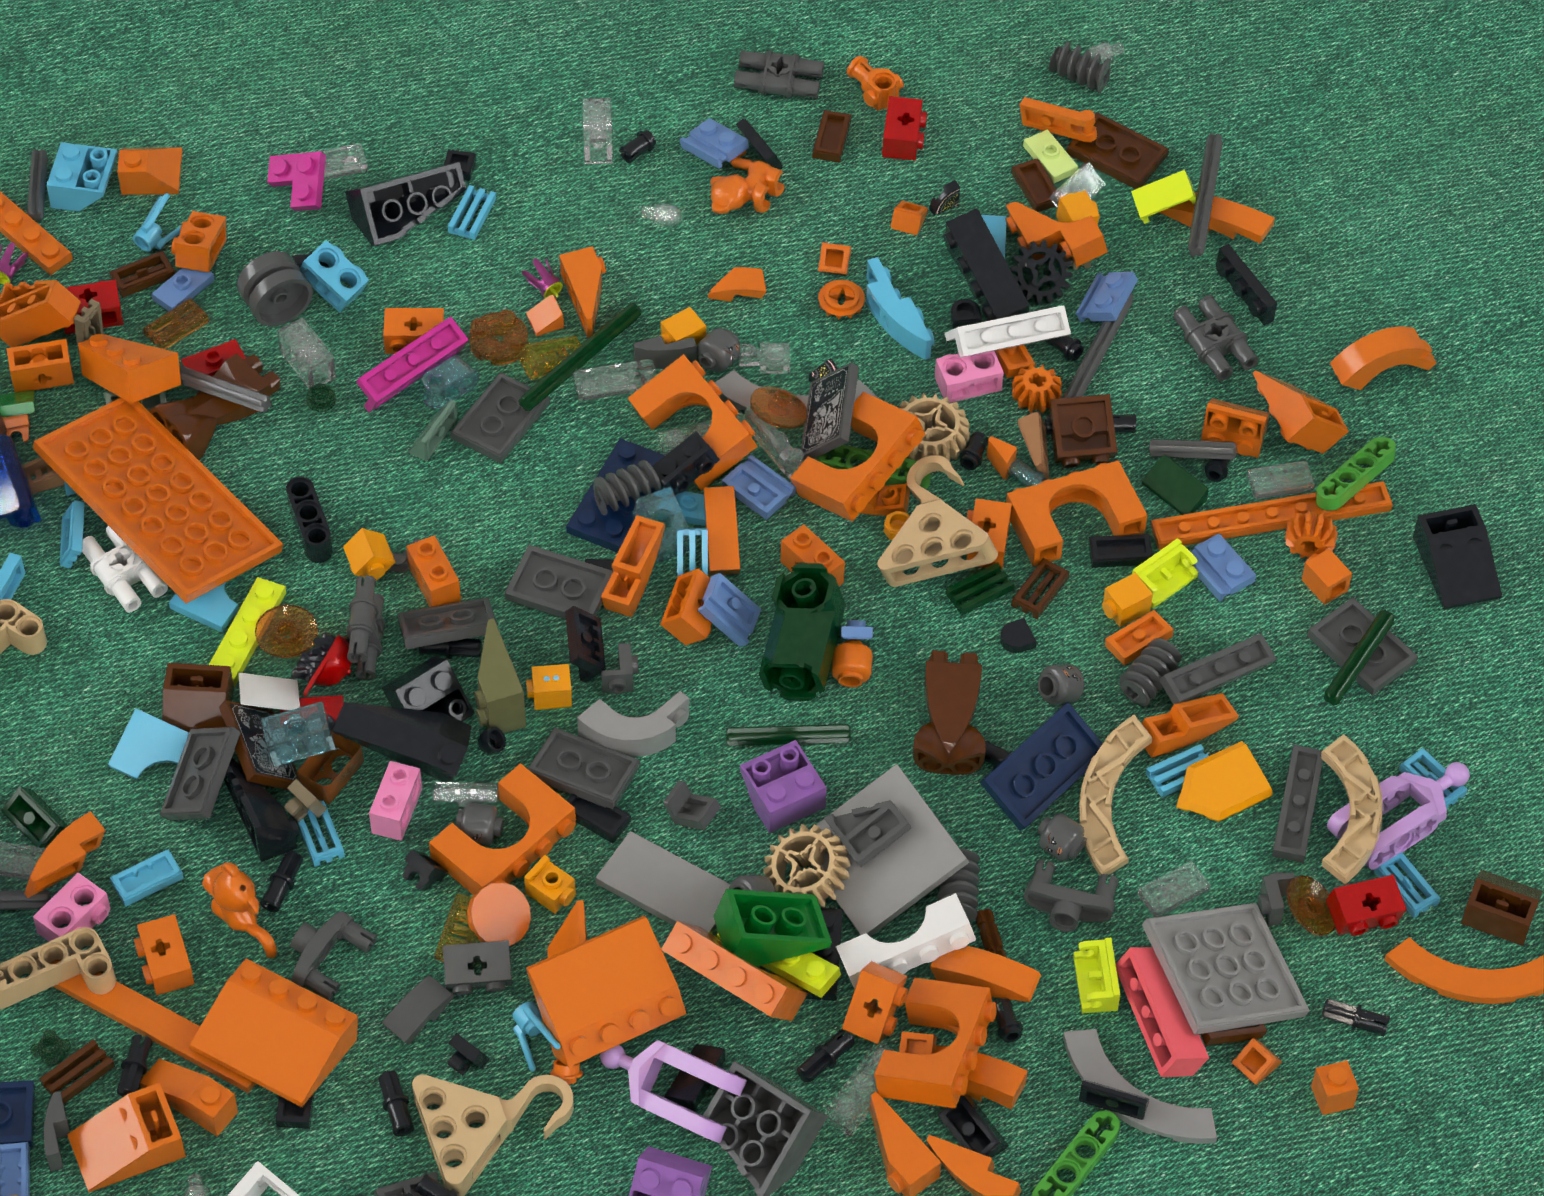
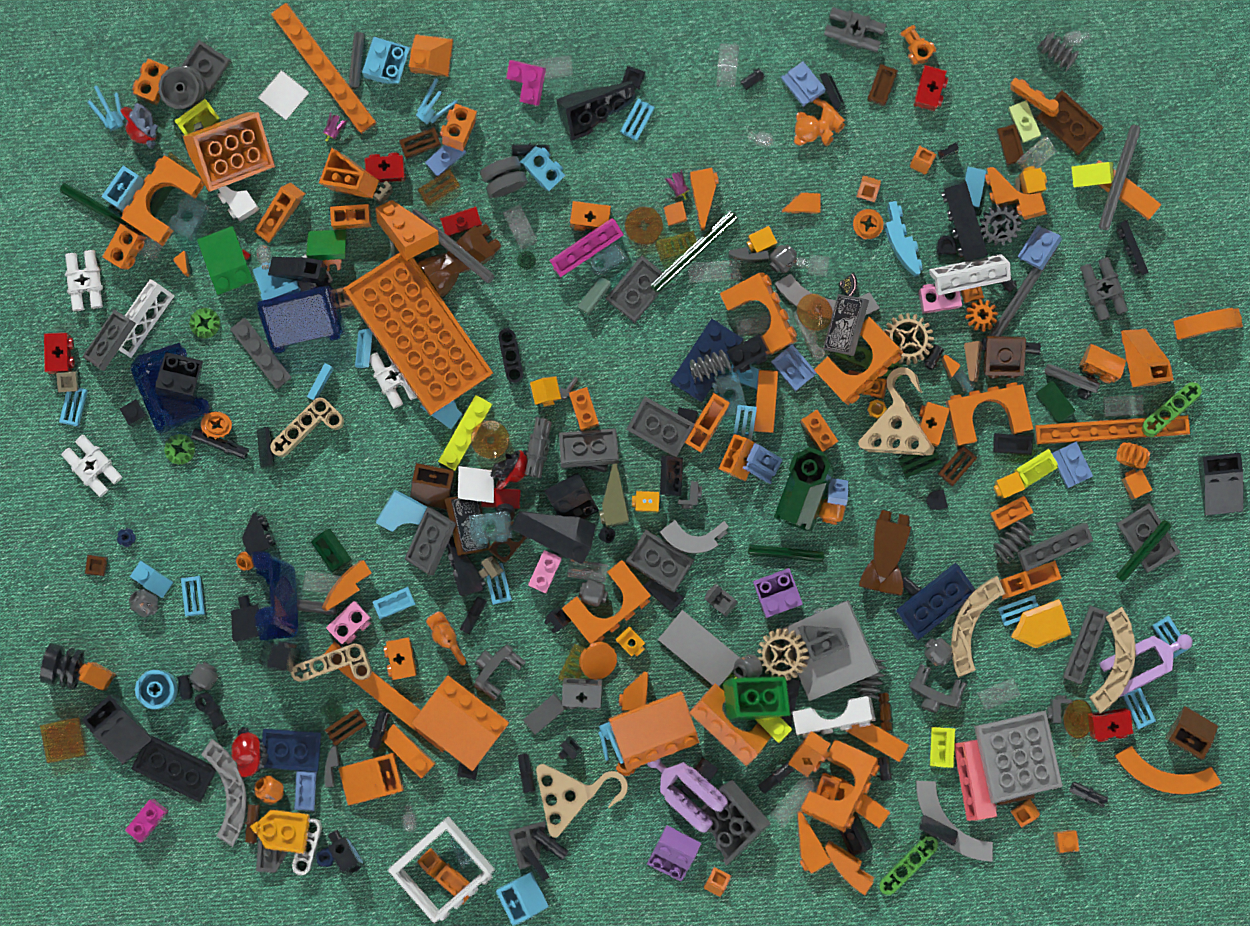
camera: 10 degrees right, 30 degrees up
(1061, 684) = (957, 543): dark grey head -> none

